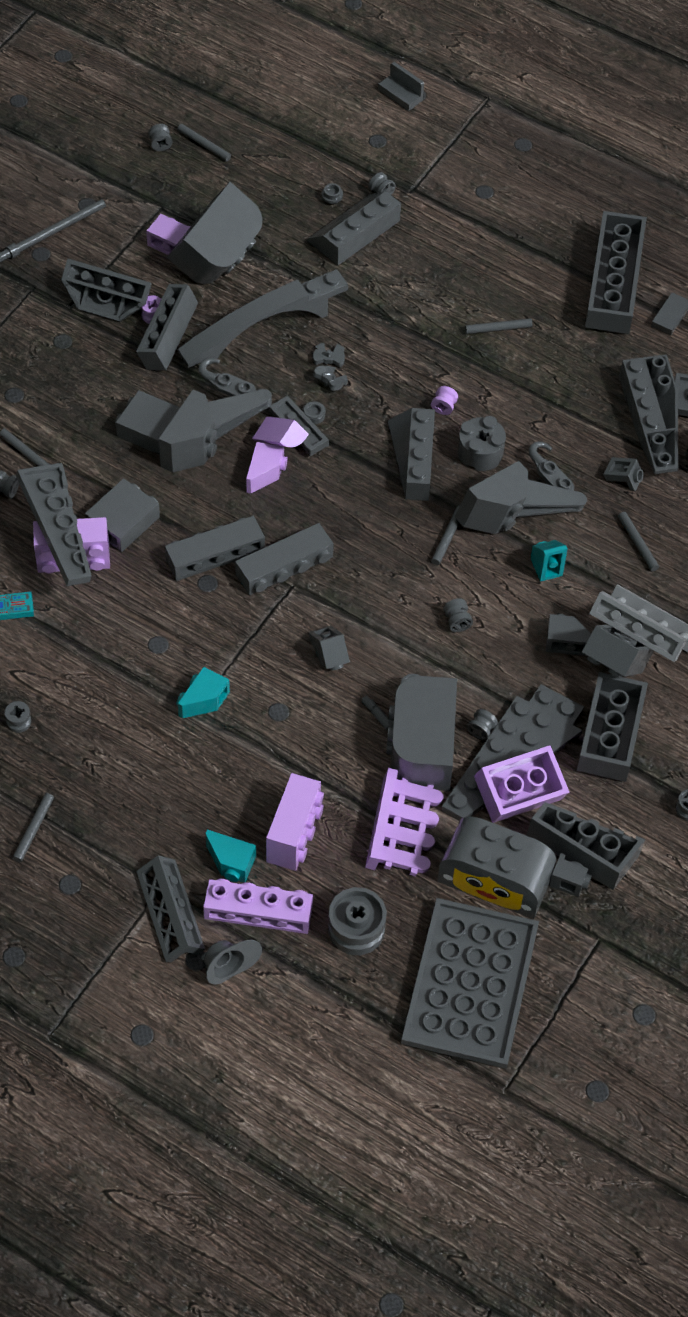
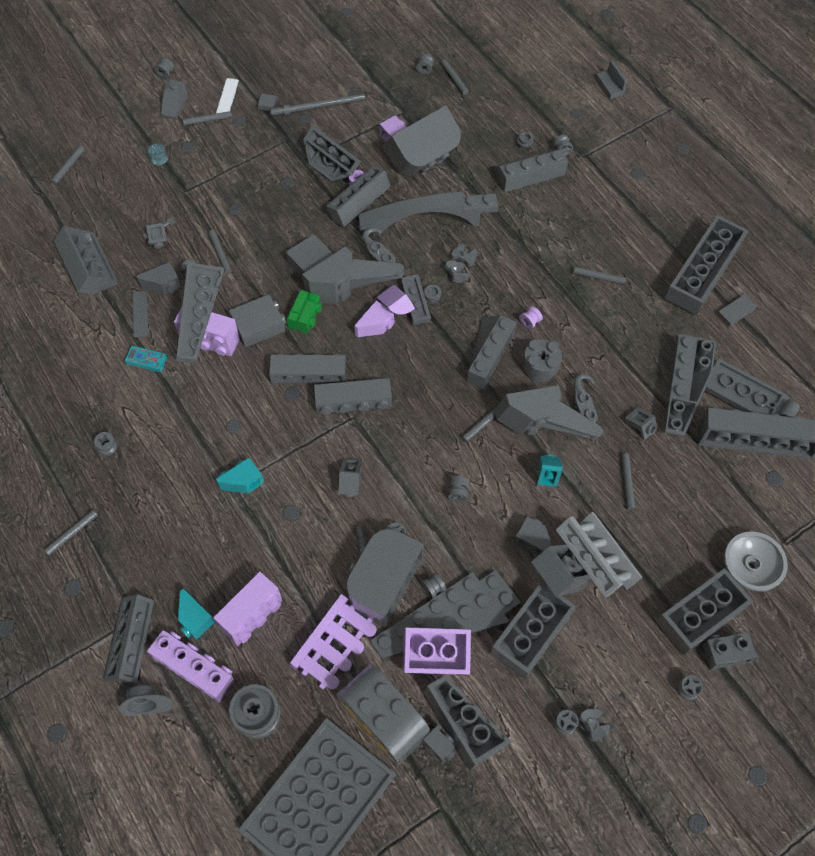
camera: 25 degrees right, 5 degrees up
(173, 485) = (304, 311): none -> green brick

